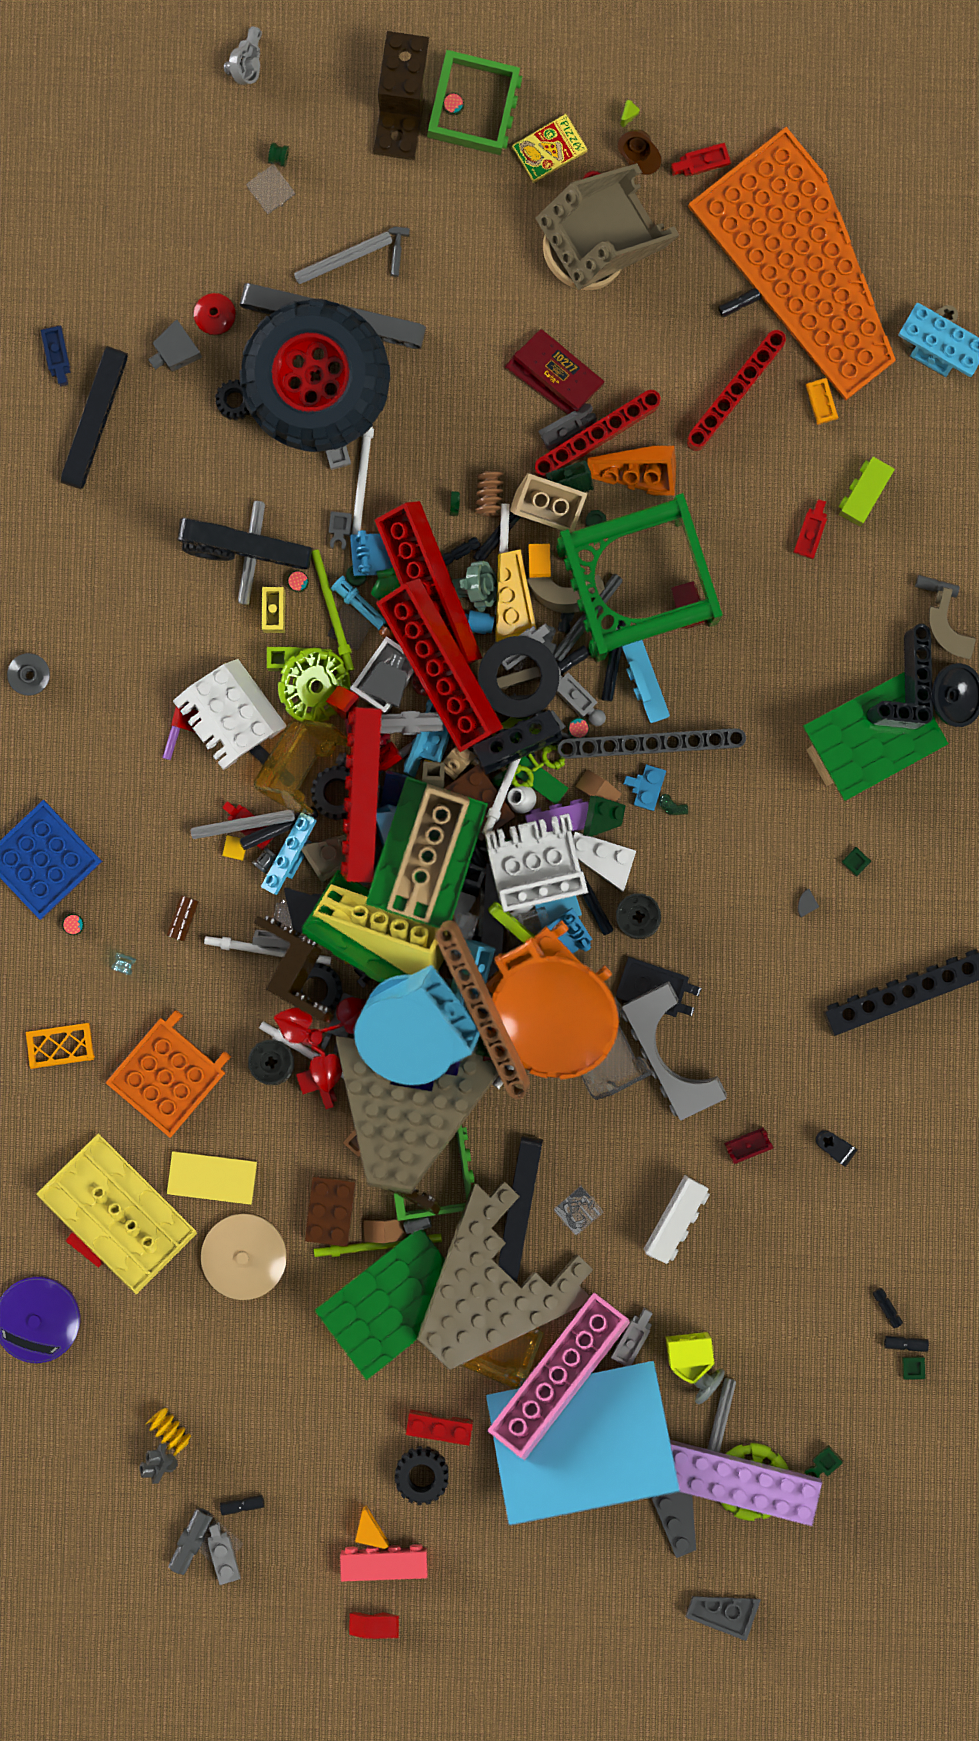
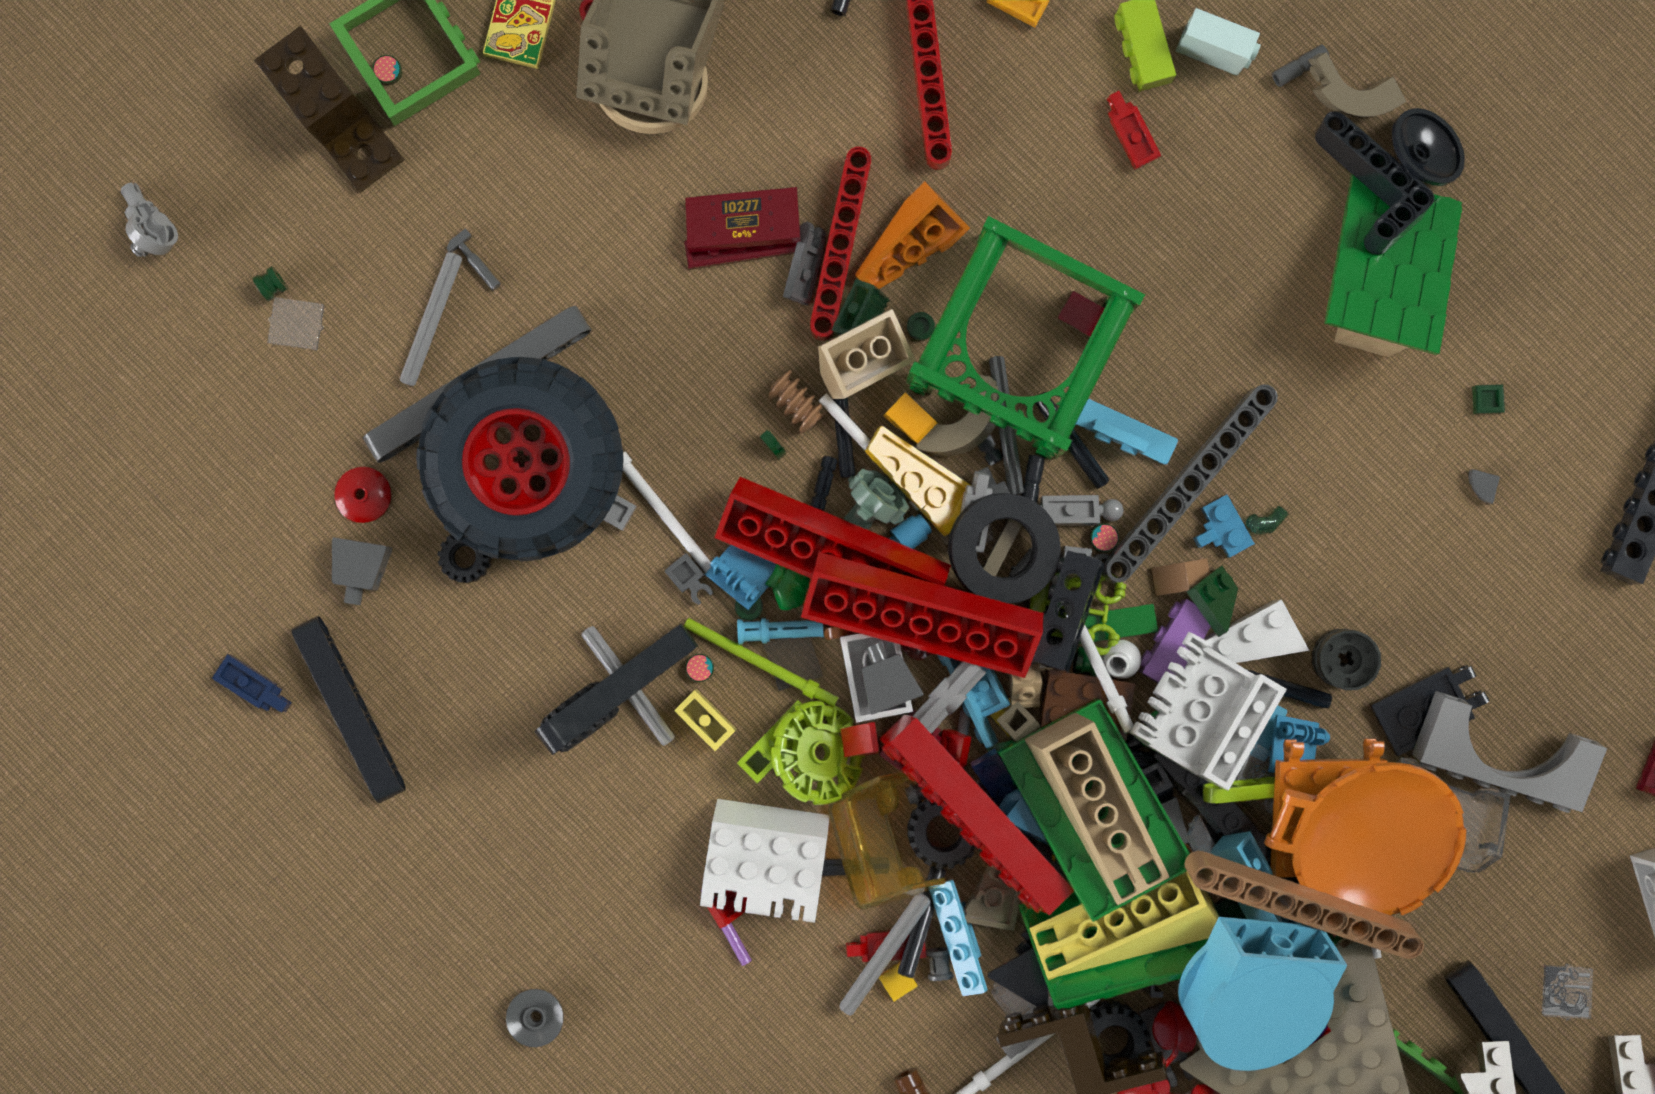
camera: 40 degrees left, 0 degrees up
(903, 528) = (1218, 42): none -> light aqua brick

